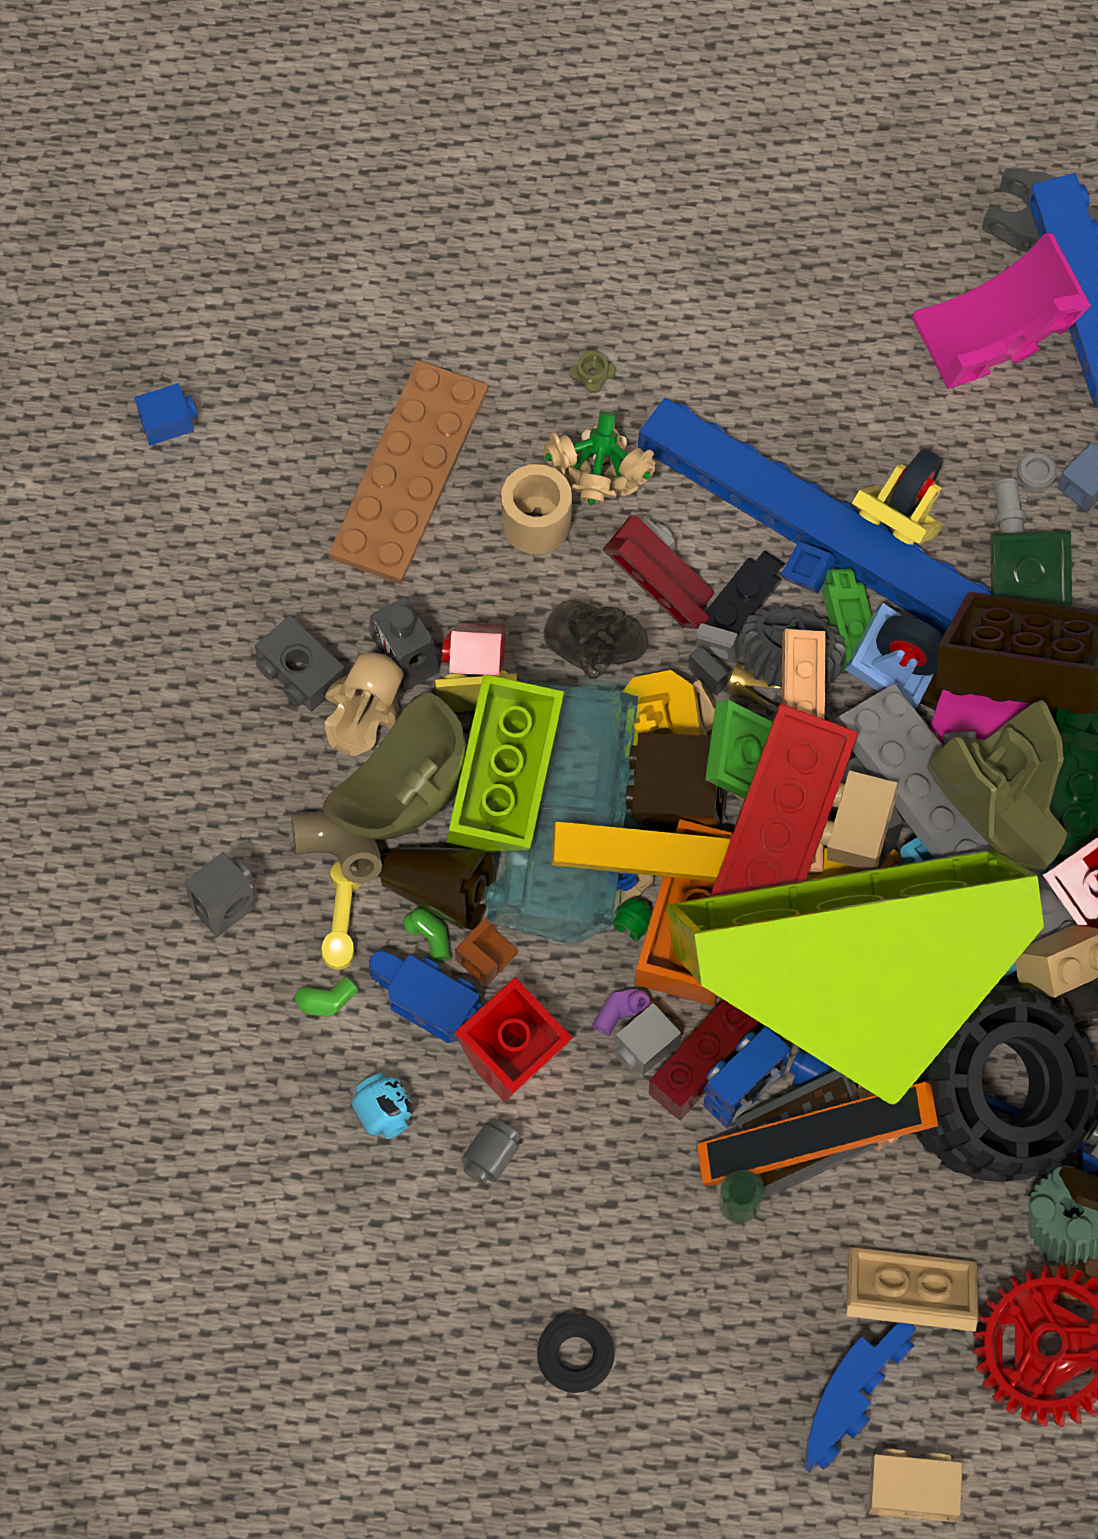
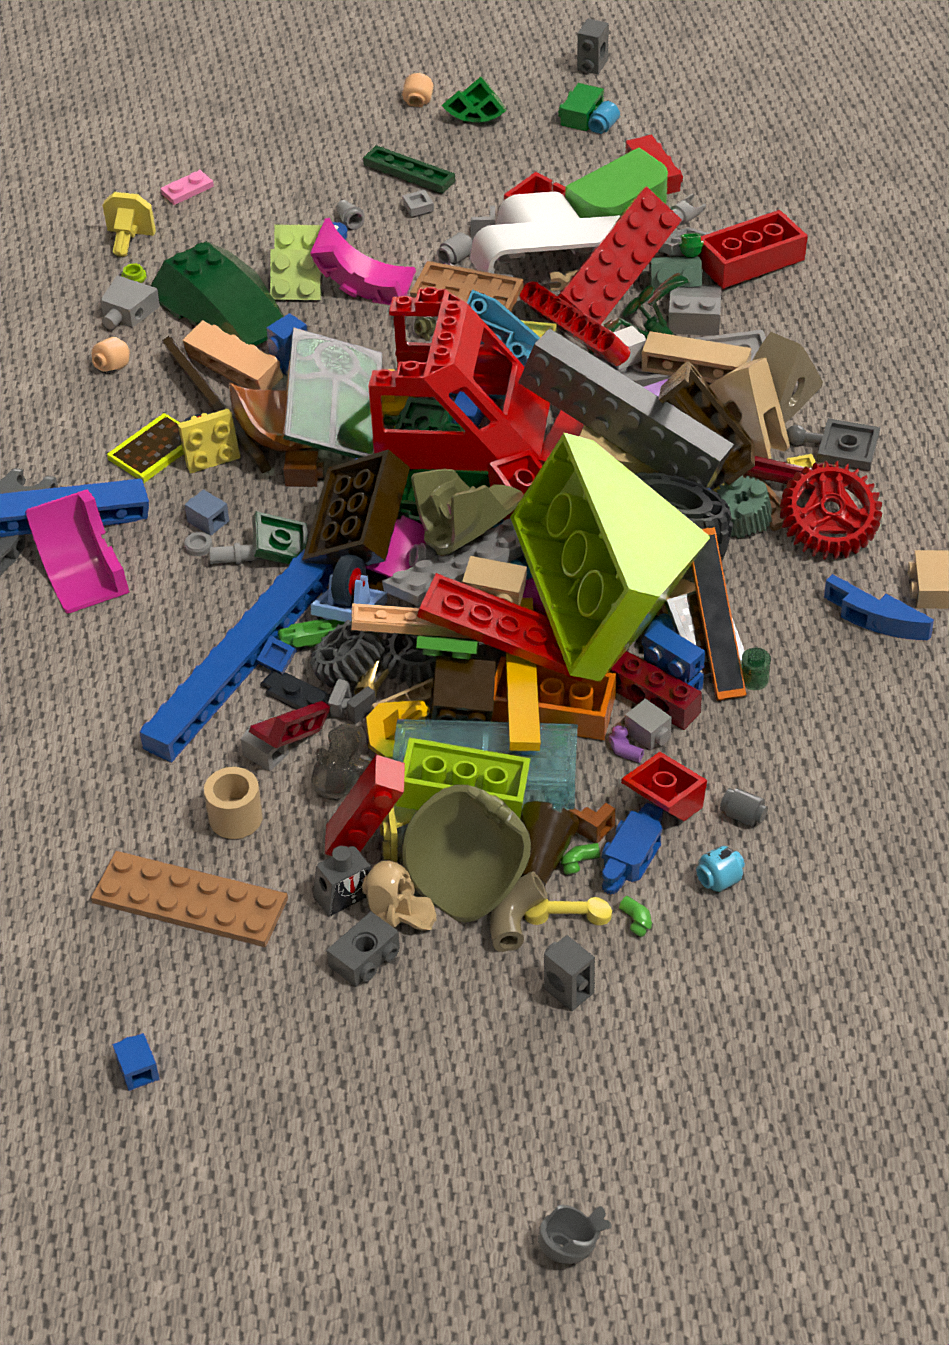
camera: 90 degrees left, 20 degrees down
(575, 1379) = (881, 741): black tyre -> none
(595, 361) = (105, 782): olive plate -> none
(602, 441) = (188, 768): tan plant -> none
(906, 499) = (228, 592): light yellow plate -> none
(912, 1289) = (803, 582): tan tile -> none

